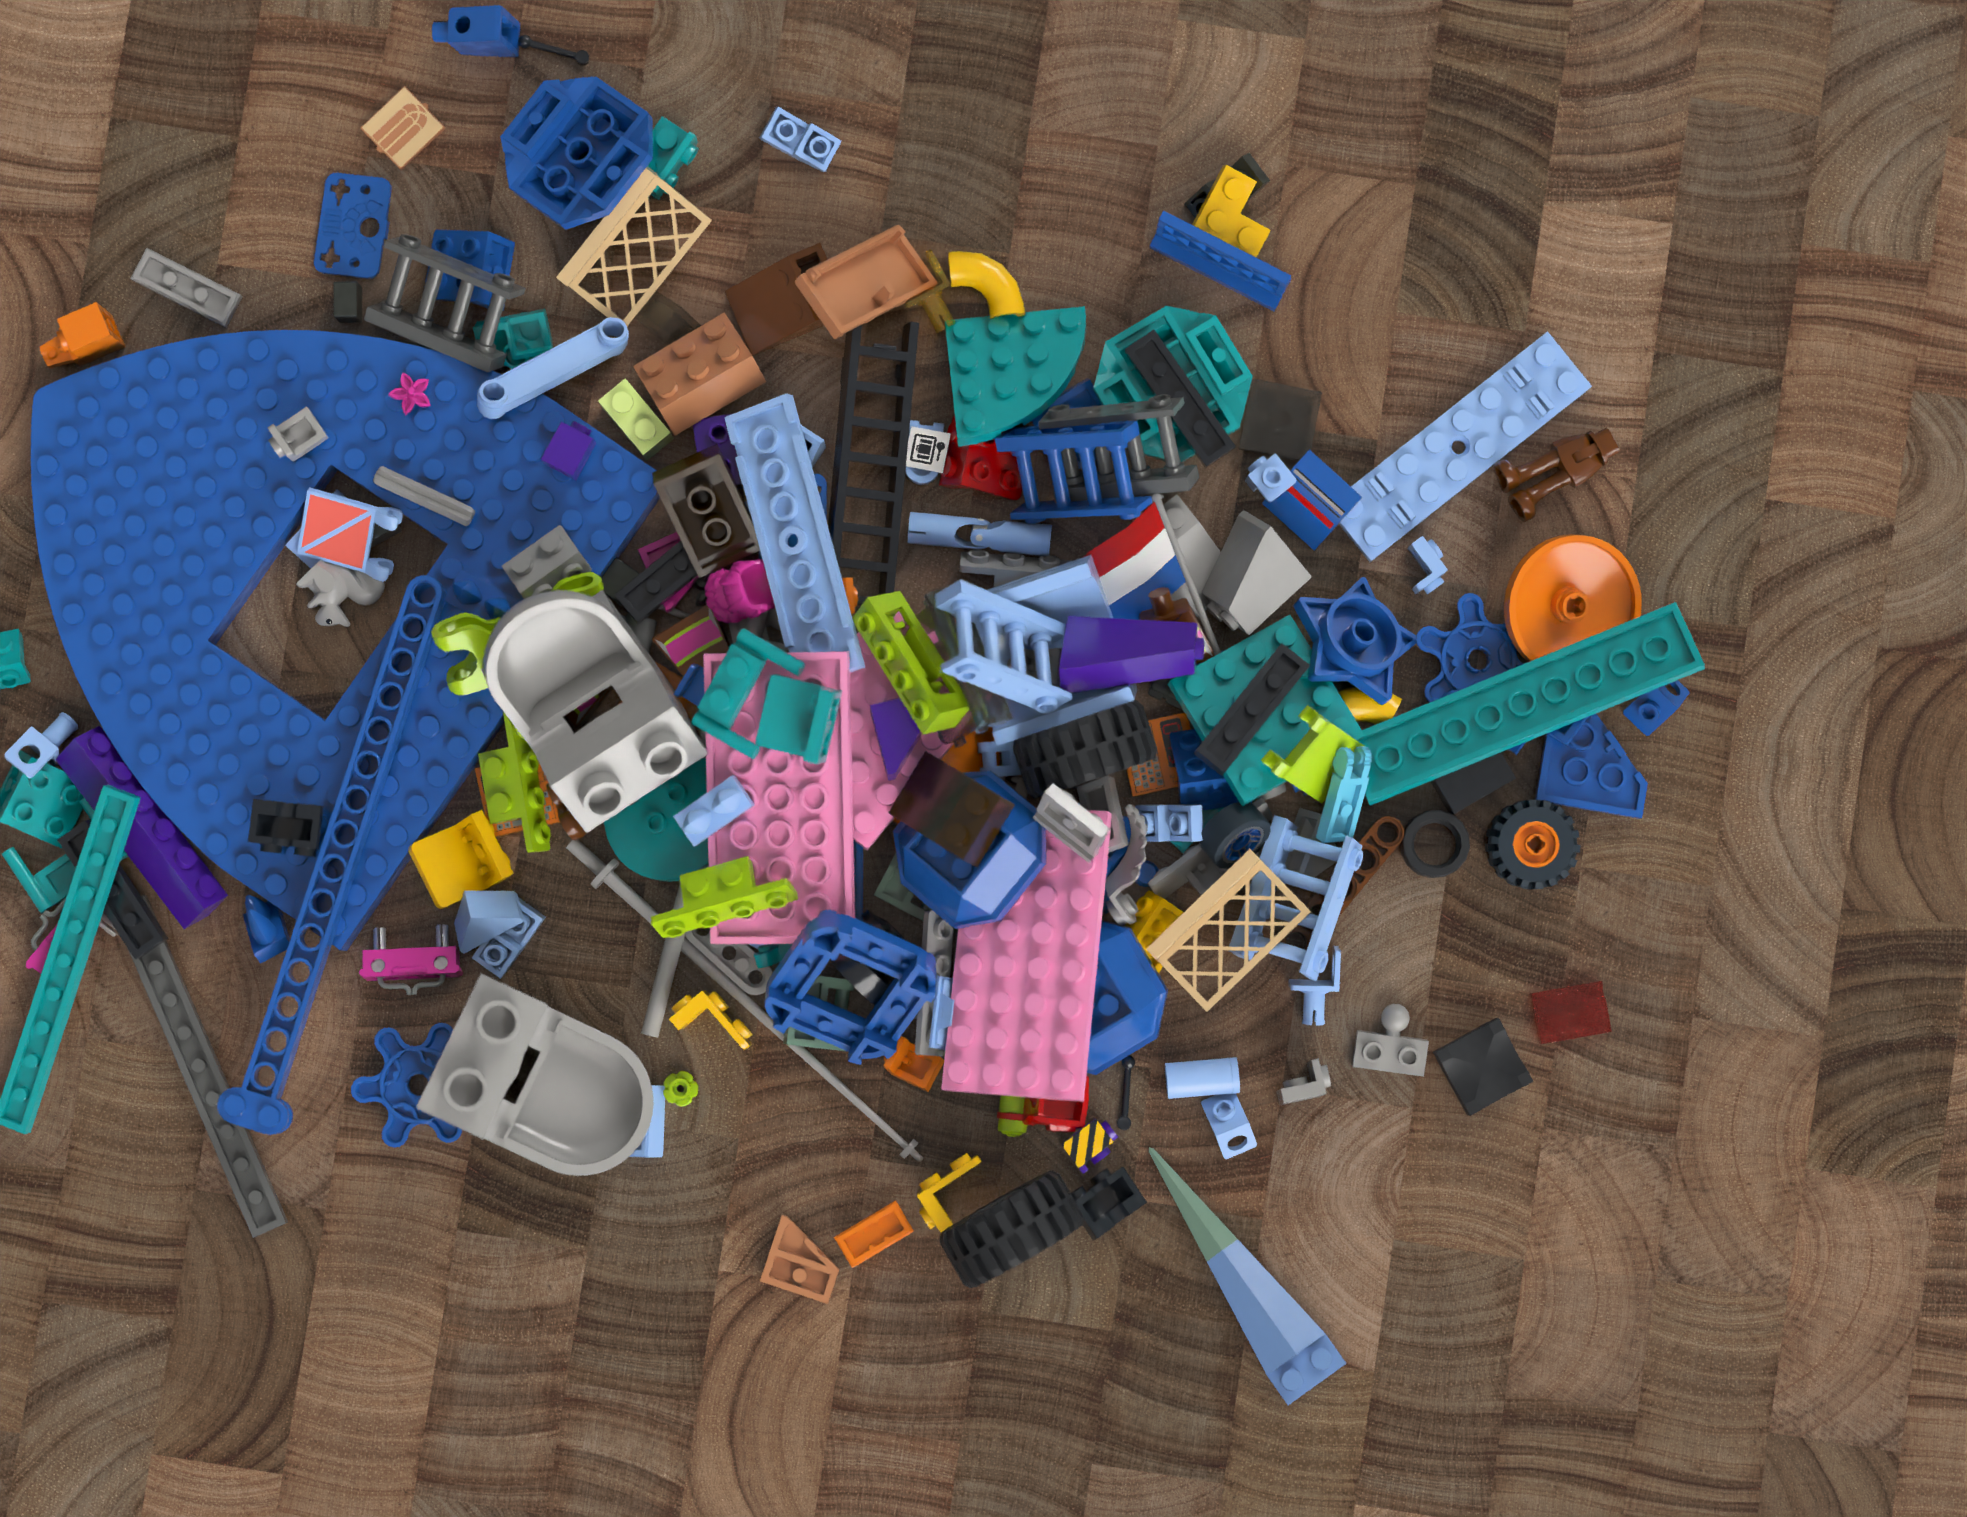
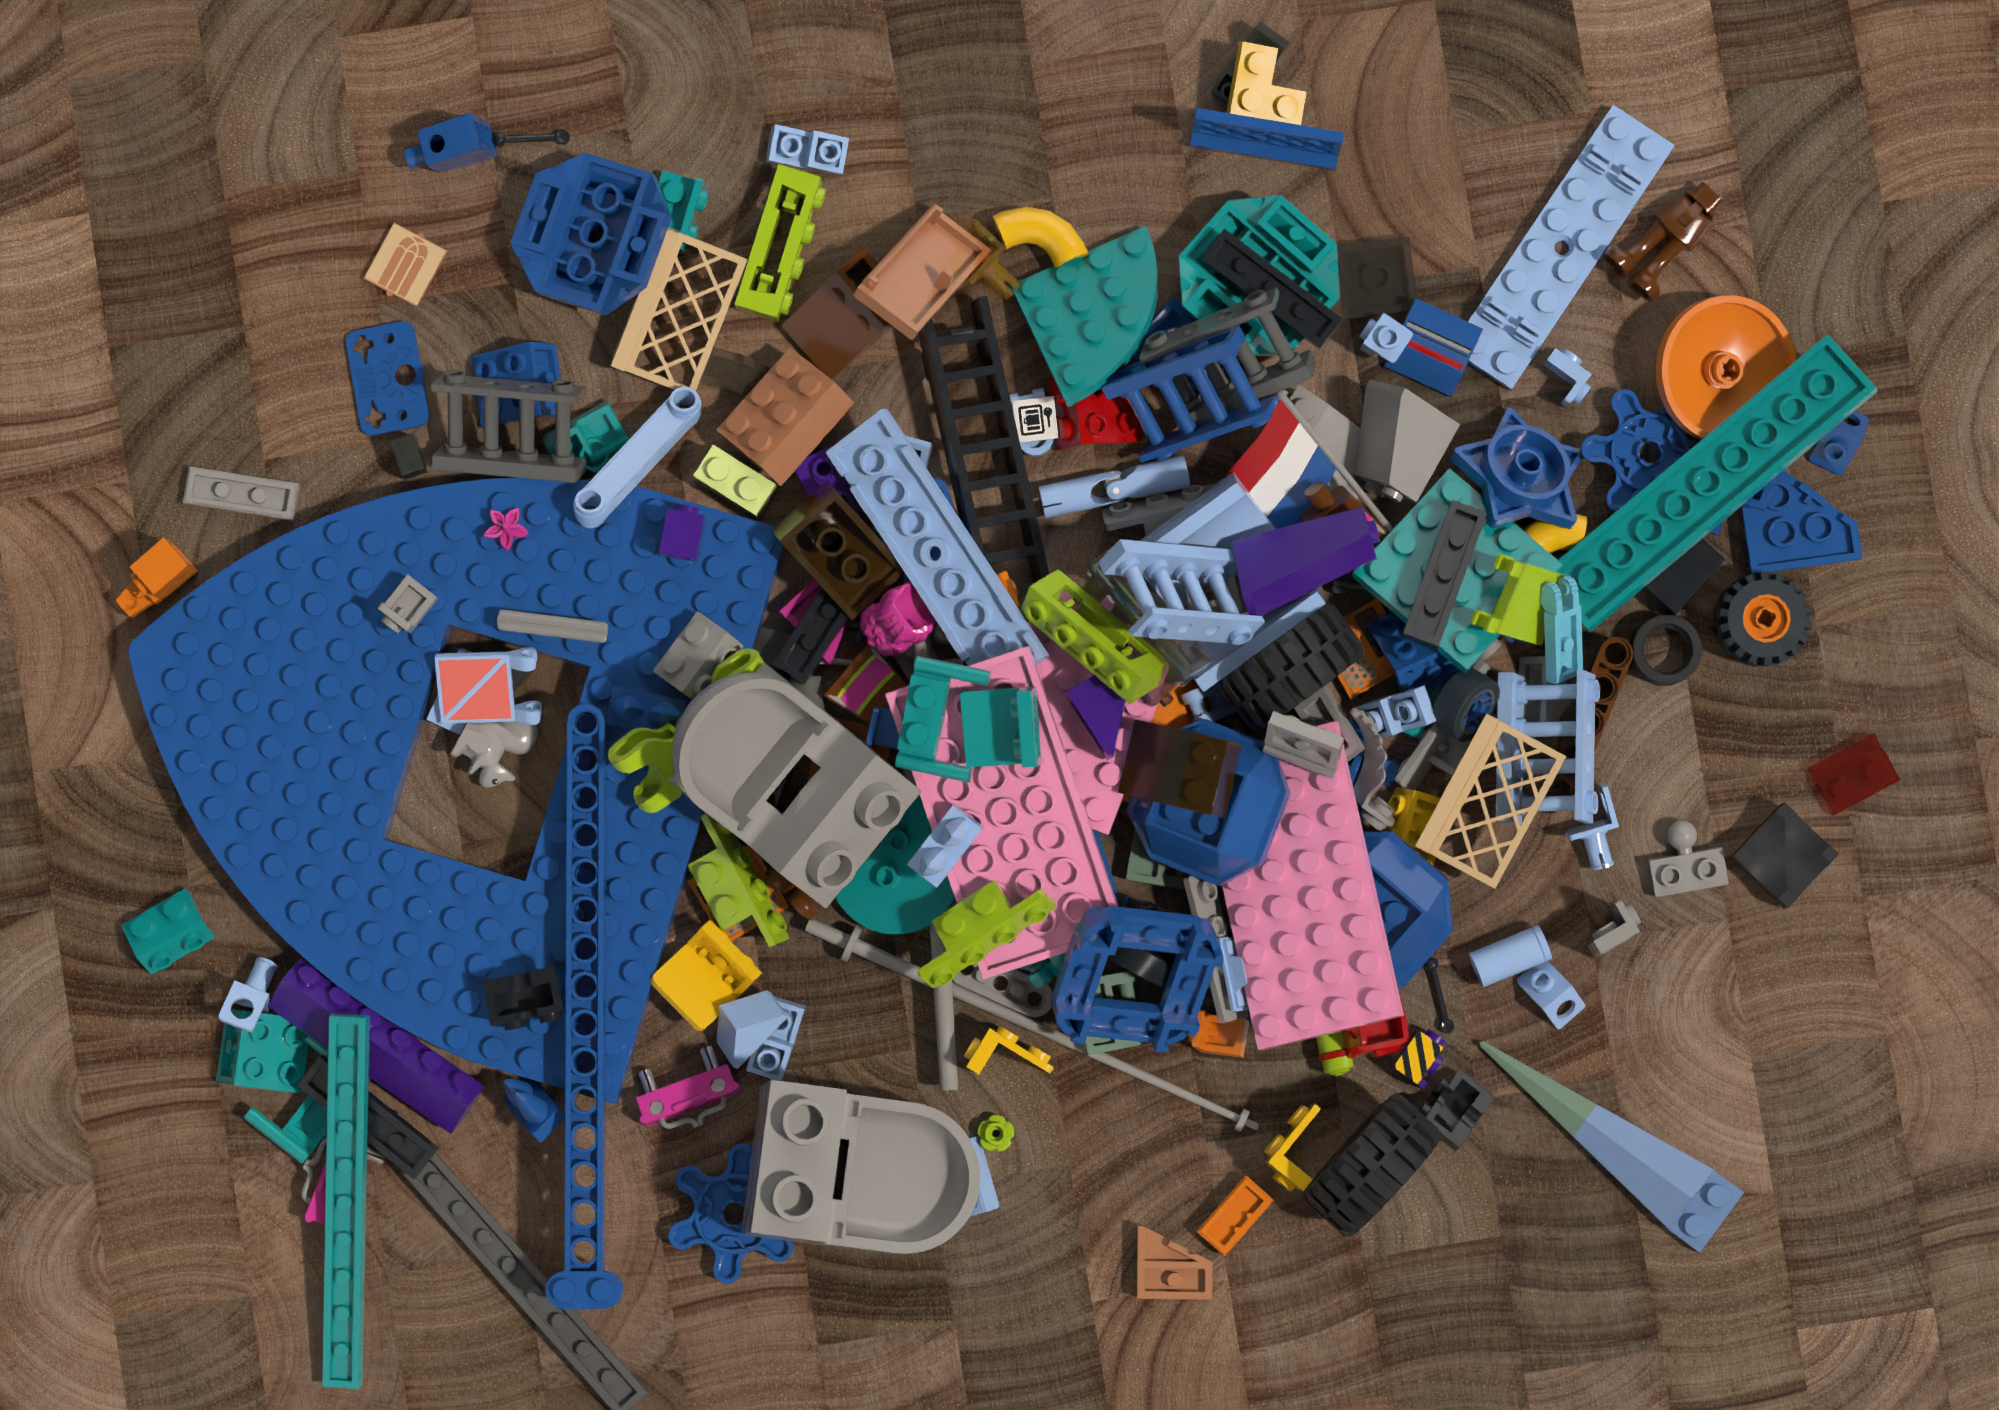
camera: 15 degrees left, 0 degrees up
(781, 169) = (797, 185): none -> lime brick

